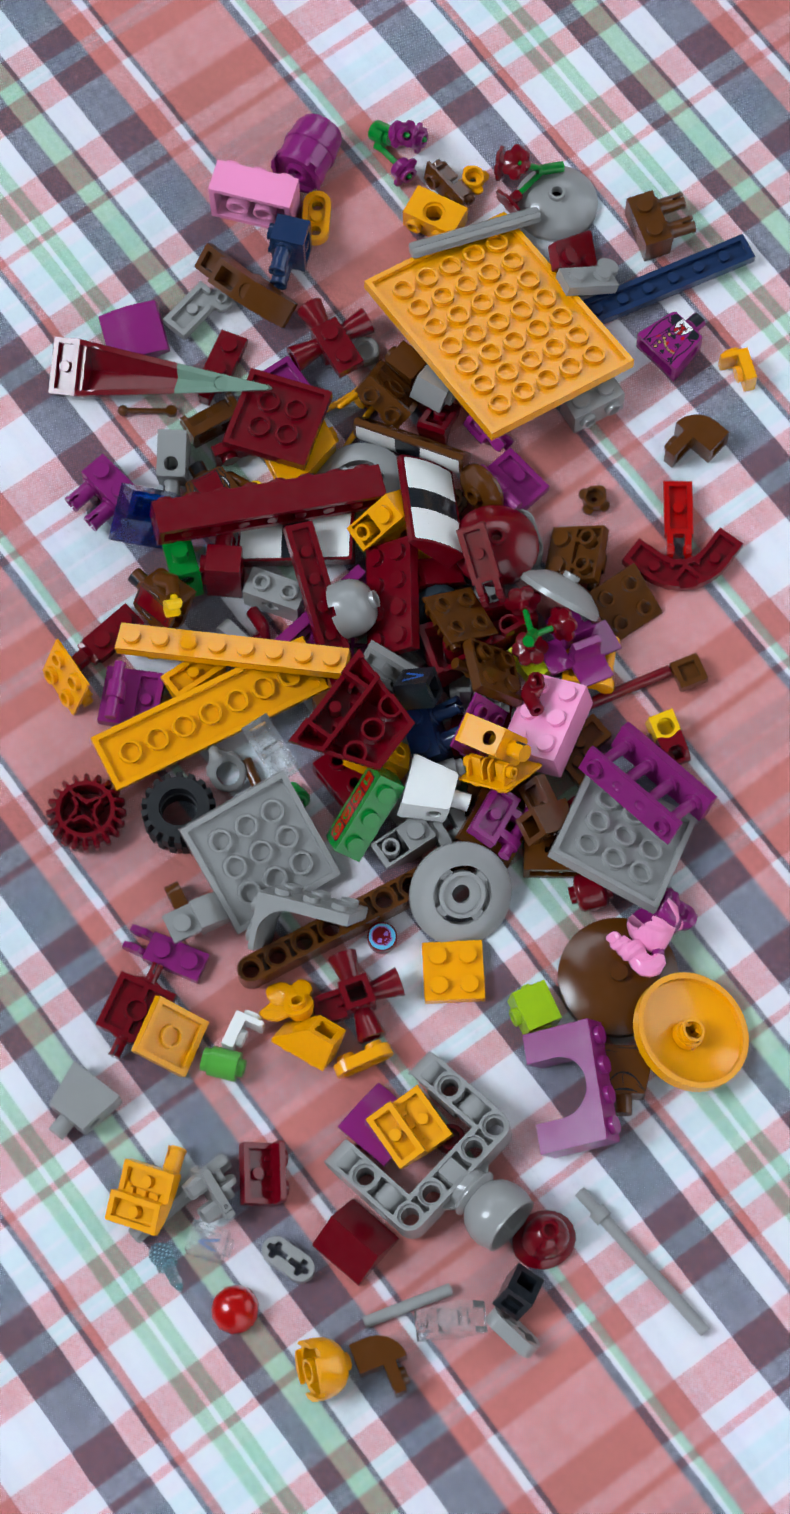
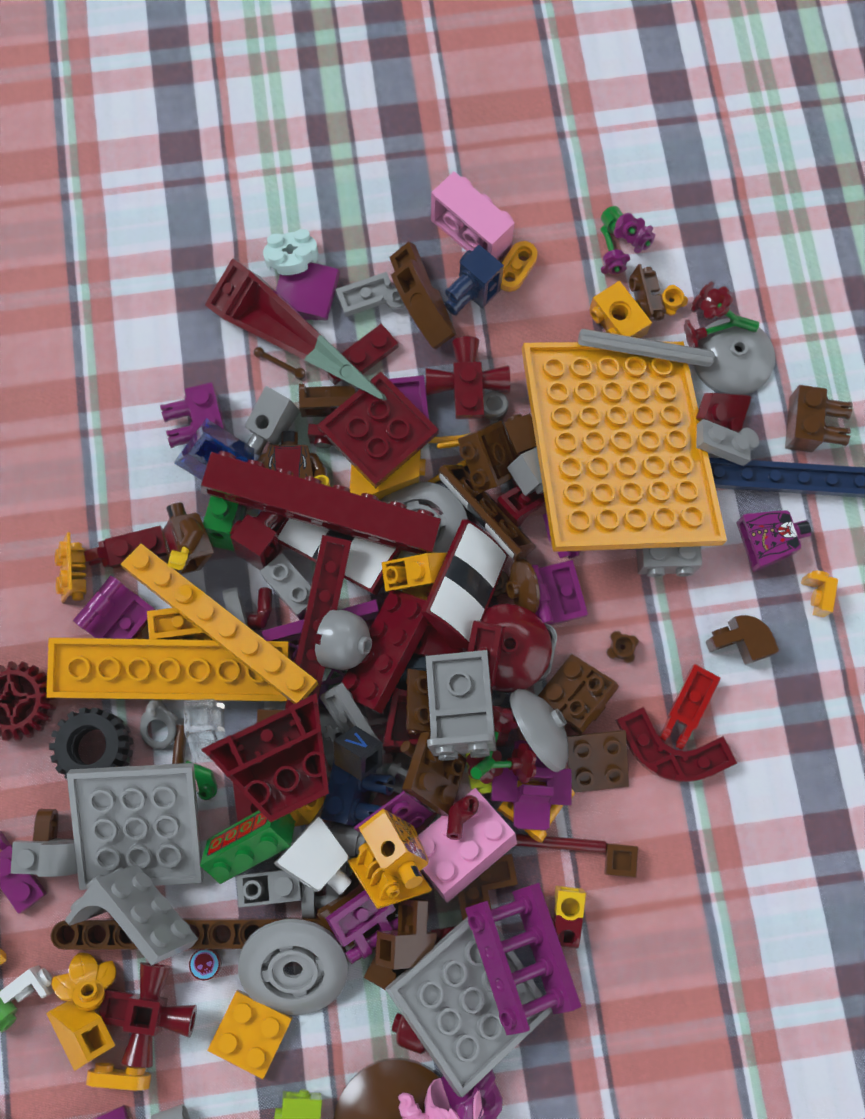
camera: 25 degrees right, 5 degrees up
(89, 310) = (298, 243): none -> light aqua plate
(308, 151) = (540, 204): magenta piece -> none
(484, 599) = (460, 705): none -> light grey bracket

